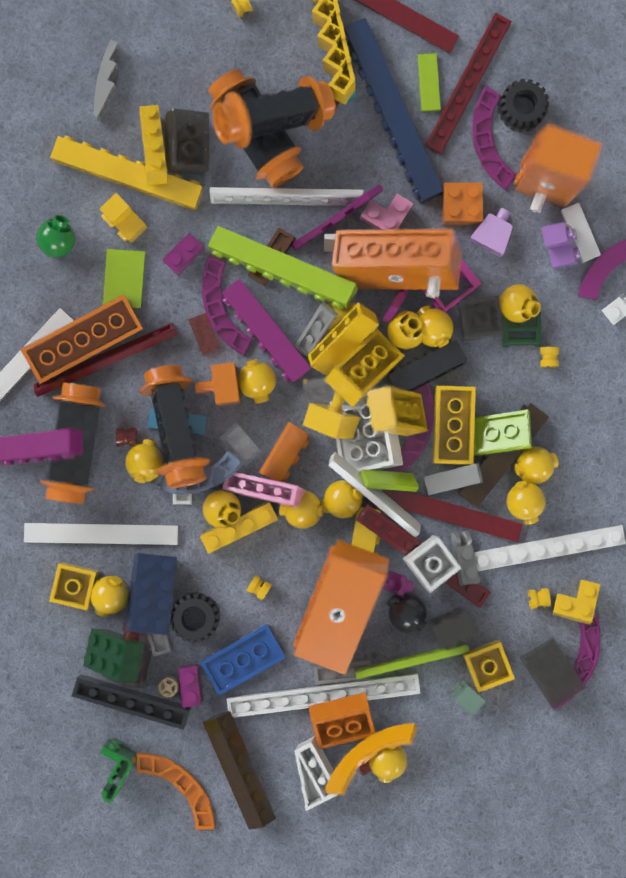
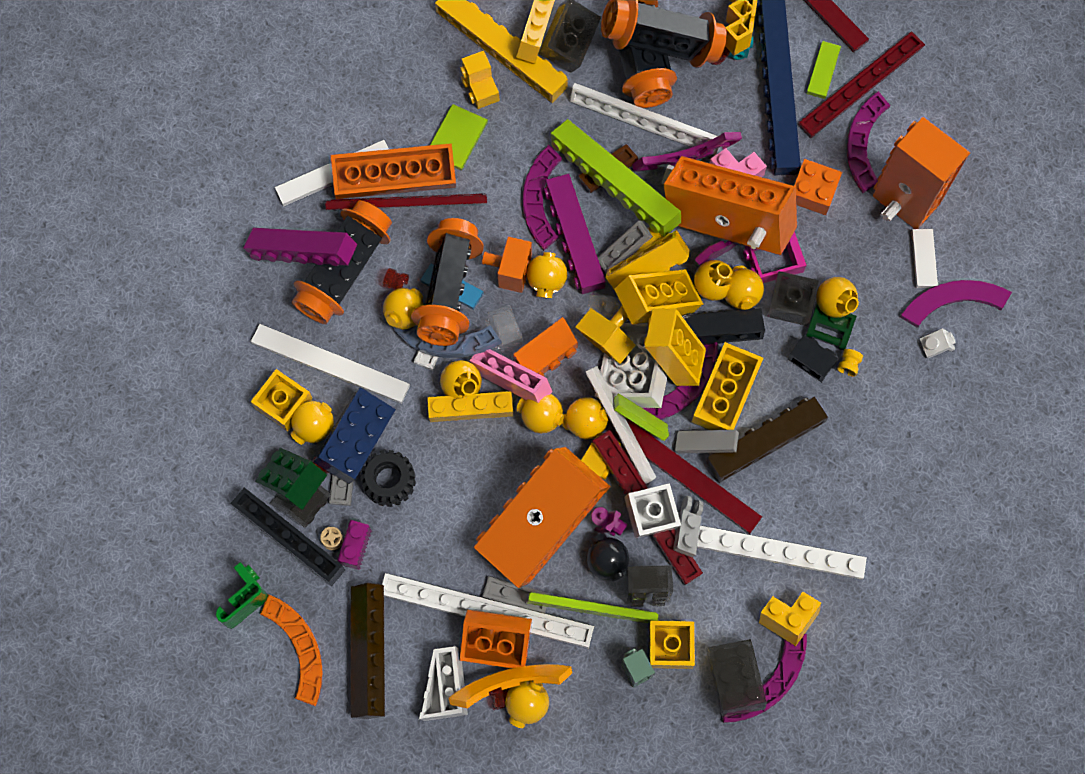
camera: 20 degrees right, 15 degrees down
(55, 237) = (408, 73): green brick -> none
(183, 254) = (524, 134): magenta brick -> none
(204, 334) = (512, 215): clear red tile -> none
(242, 659) = (418, 541): blue plate -> none
(259, 587) = (465, 474): yellow wheel -> none
(493, 233) = (835, 225): lavender torso -> none
(502, 432) = (773, 413): lime tile -> none
(516, 366) = (813, 358): none -> black brick
(517, 119) = (902, 105): black tyre -> none
(526, 502) = (773, 492): yellow brick -> none
(535, 465) = (797, 461): yellow brick -> none
(539, 598) = (751, 598): yellow wheel -> none
(561, 244) = (901, 257): medium lavender brick -> none

